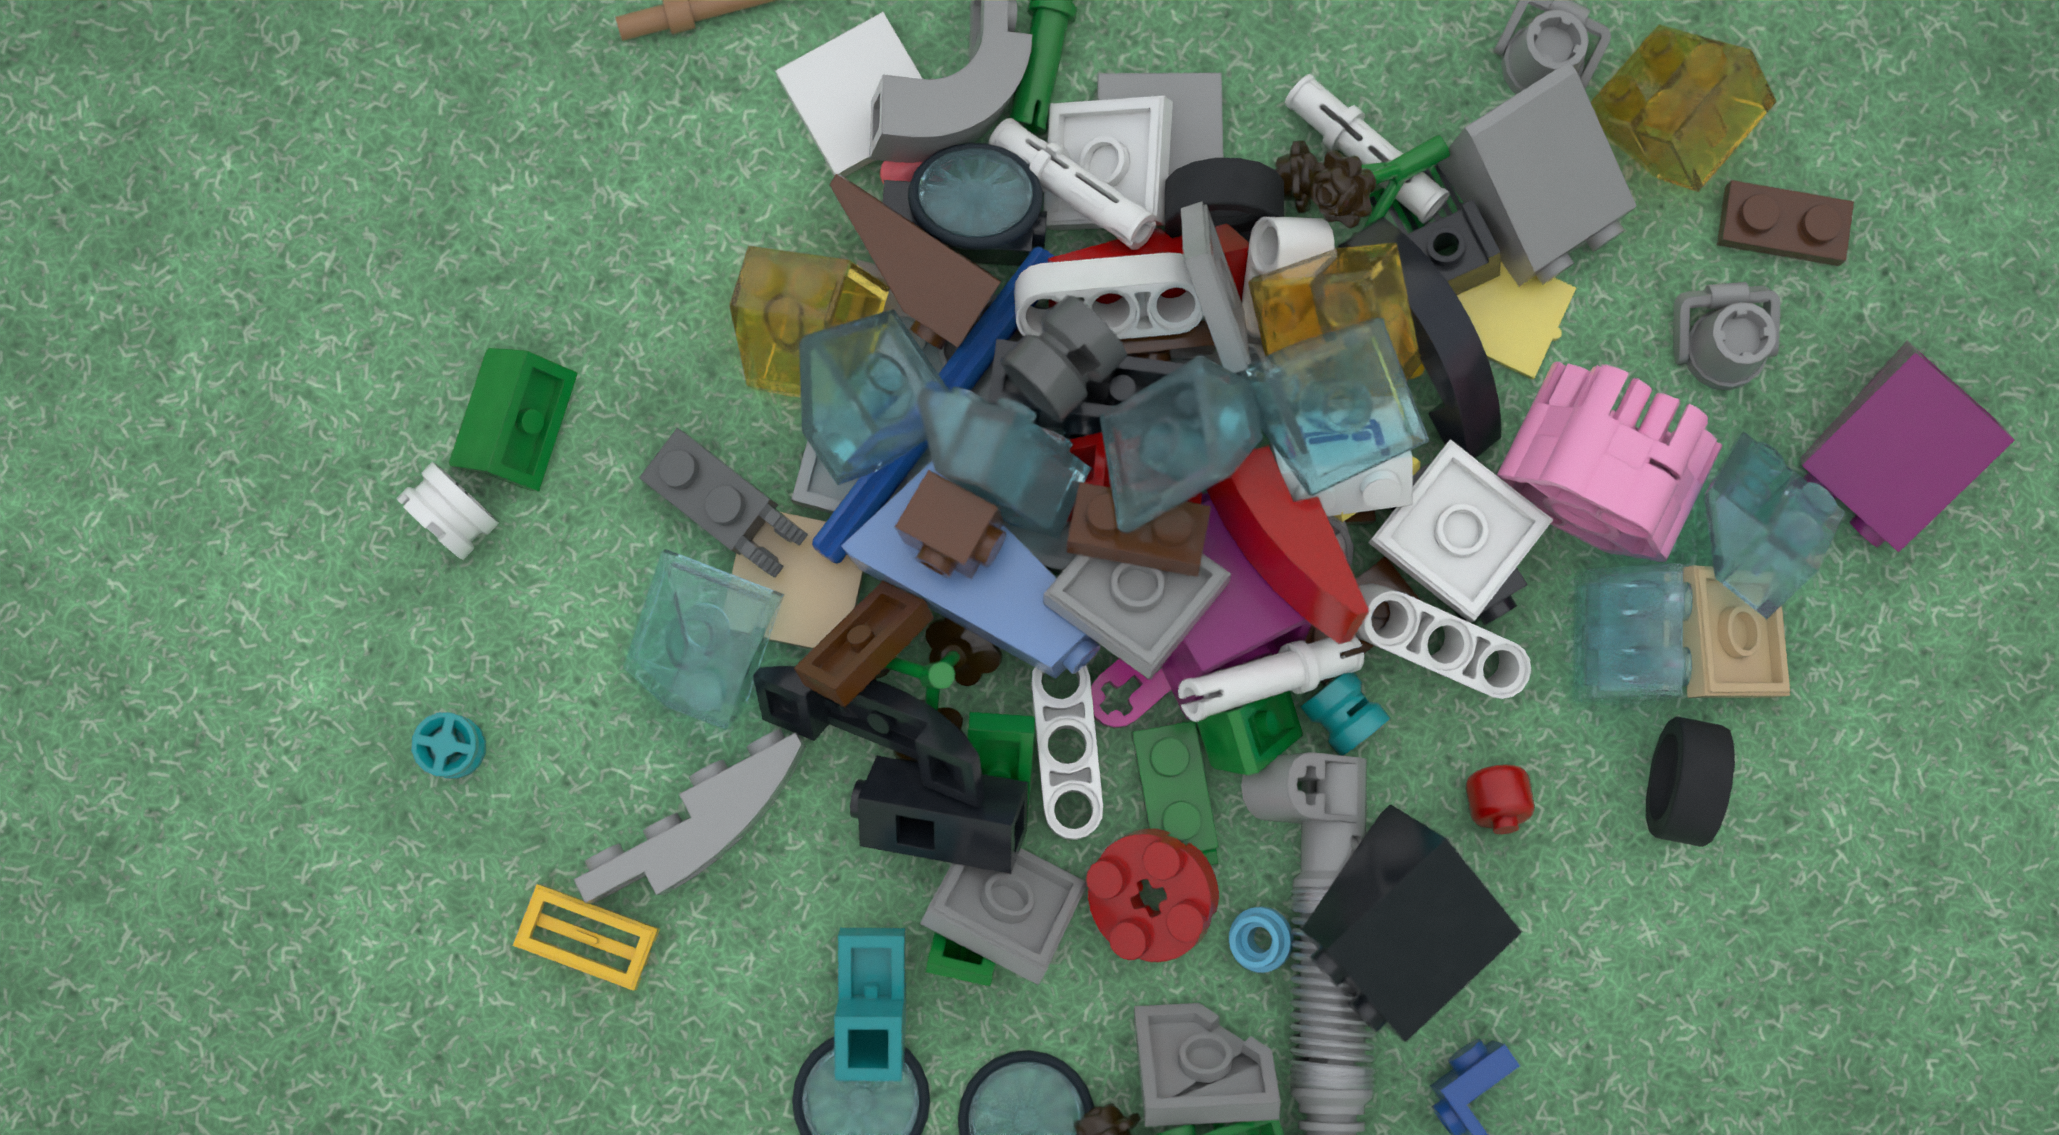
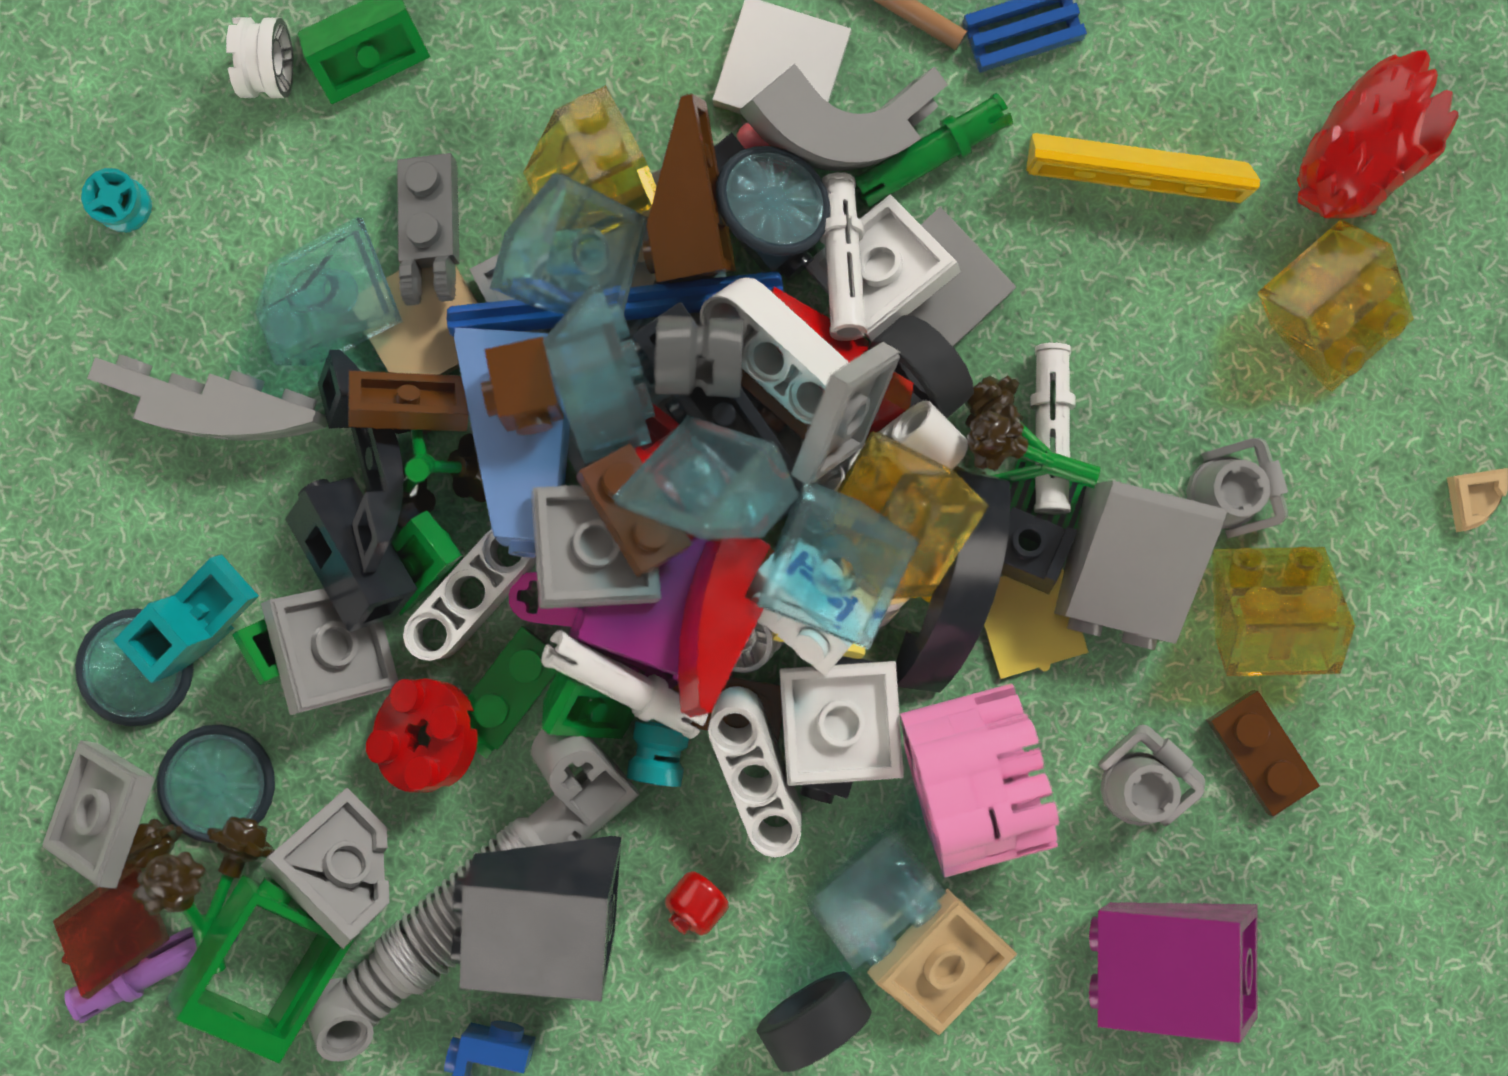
camera: 55 degrees right, 5 degrees up
(638, 956) = (97, 442): yellow tile -> none
(1245, 948) = (448, 830): medium azure plate -> none
(1766, 525) = (1031, 923): clear light blue slope -> none

